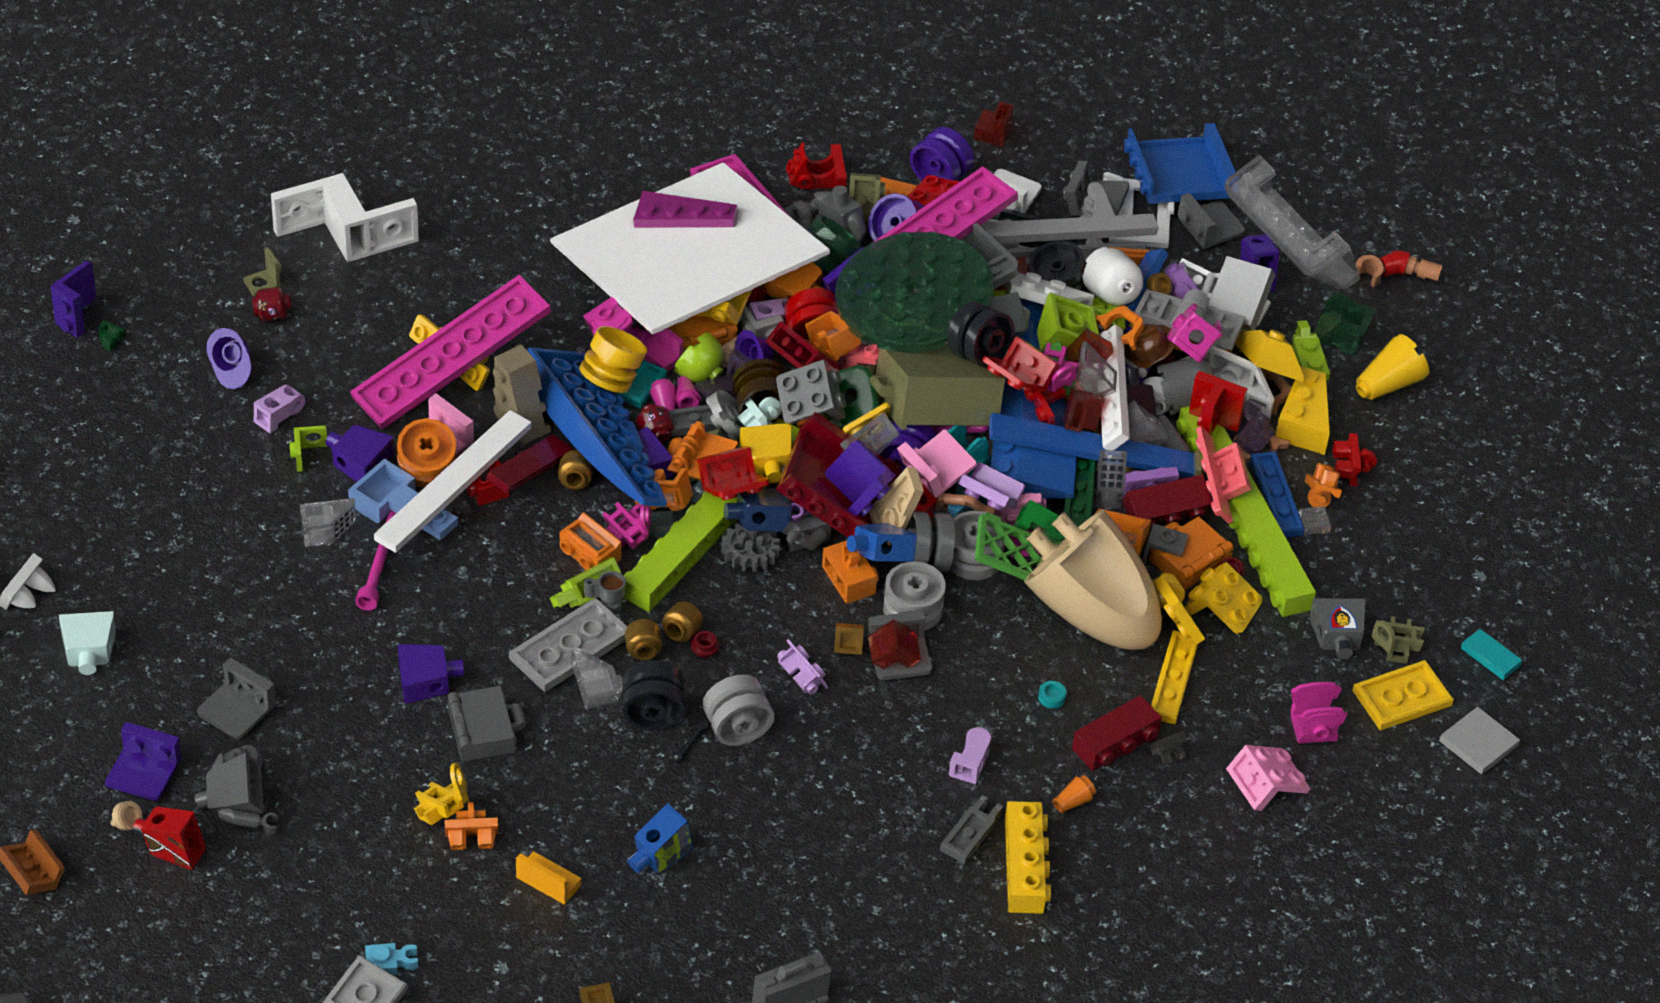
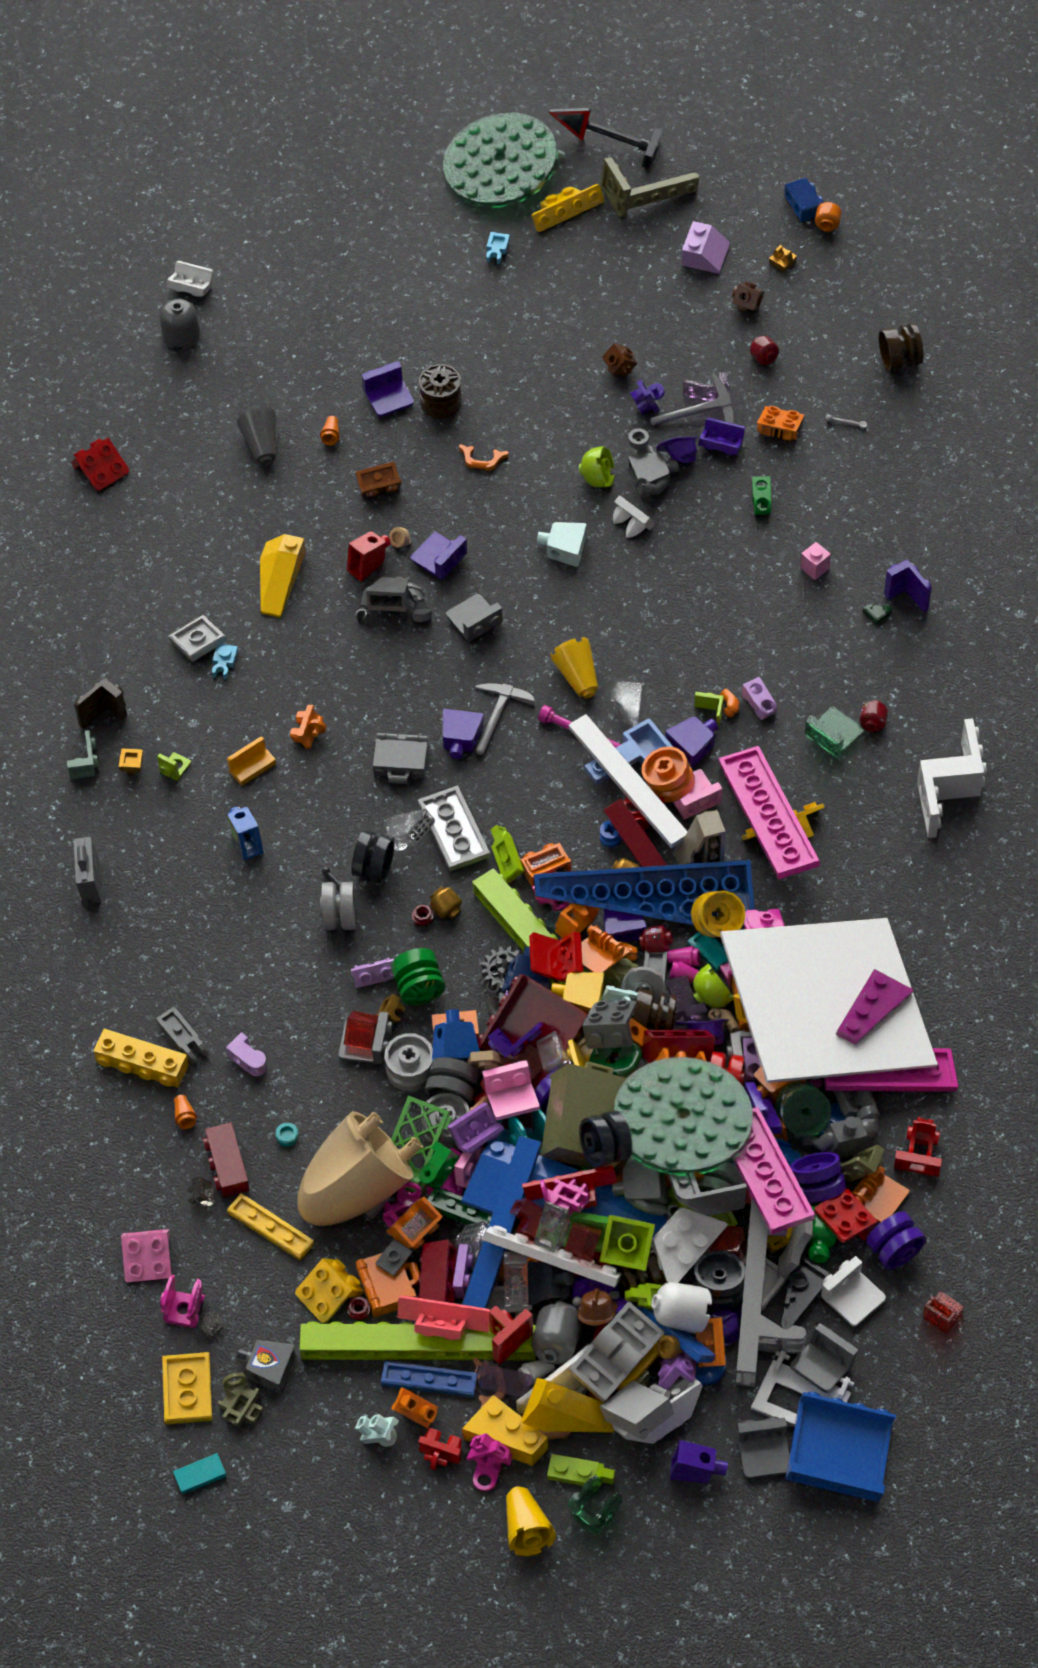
camera: 115 degrees right, 10 degrees up
(52, 394) = (815, 561): none -> bright pink brick
(216, 934) = (278, 572): none -> yellow wedge
(229, 357) = (821, 679): piece -> none
(271, 273) = (910, 720): olive bracket -> none
(286, 435) = (732, 703): none -> orange arm
(287, 577) = (577, 666): none -> yellow cone
(304, 335) = (833, 731): none -> clear green bracket
(342, 648) = (505, 692): none -> light grey piece
(441, 801) = (343, 718): yellow piece -> none
(523, 500) = (606, 837): none -> blue wheel
(591, 960) = (169, 766): none -> lime bracket
(609, 587) = (487, 856): dark grey piece -> none
(643, 639) = (437, 872): pearl gold head -> none
(802, 610) = (418, 976): none -> green wheel
(1024, 366) = (560, 1156): red bracket -> none
(1123, 312) = (607, 1291): orange helmet -> none
(1170, 598) = (321, 1236): yellow plate -> none
(1190, 321) = (561, 1318): dark pink piece -> none
(1315, 520) = (388, 1395): clear tile -> none
(1321, 259) = (716, 1497): clear windscreen -> none
(1342, 420) = (489, 1457): none -> dark pink piece
(1364, 507) = (377, 1430): none -> light aqua hips
(1396, 263) = (662, 1591): nougat piece -> none
(1479, 740) = (119, 1425): light grey tile -> none

